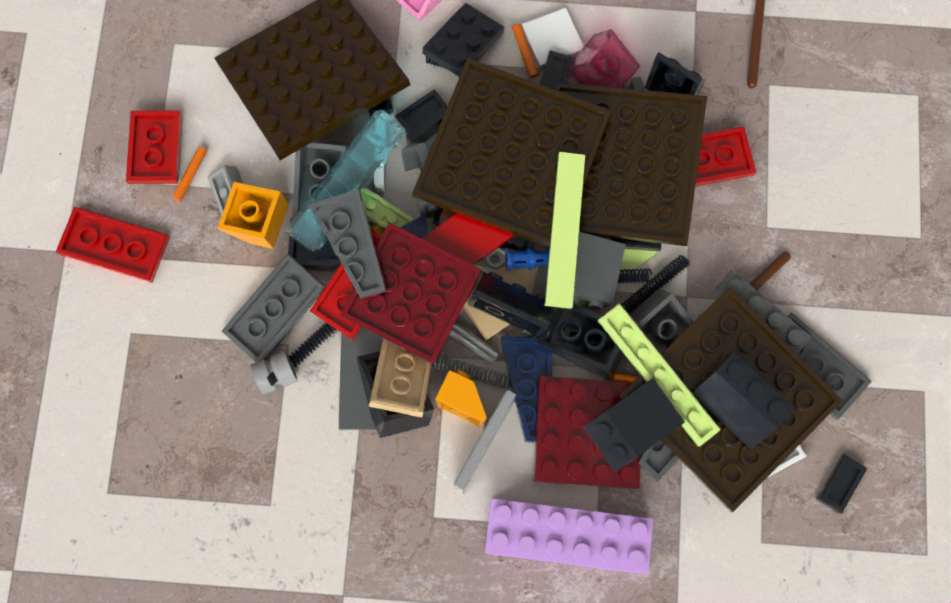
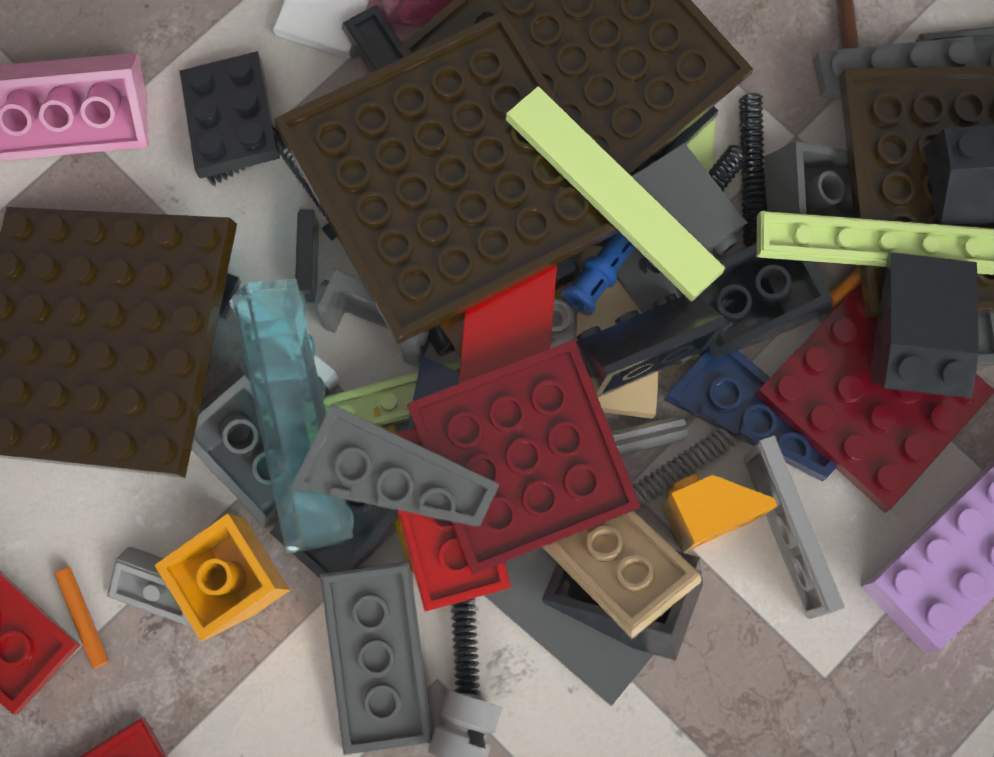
camera: 50 degrees left, 0 degrees up
(420, 111) = (275, 244): black tile -> none
(525, 51) = (311, 55): orange piece -> none

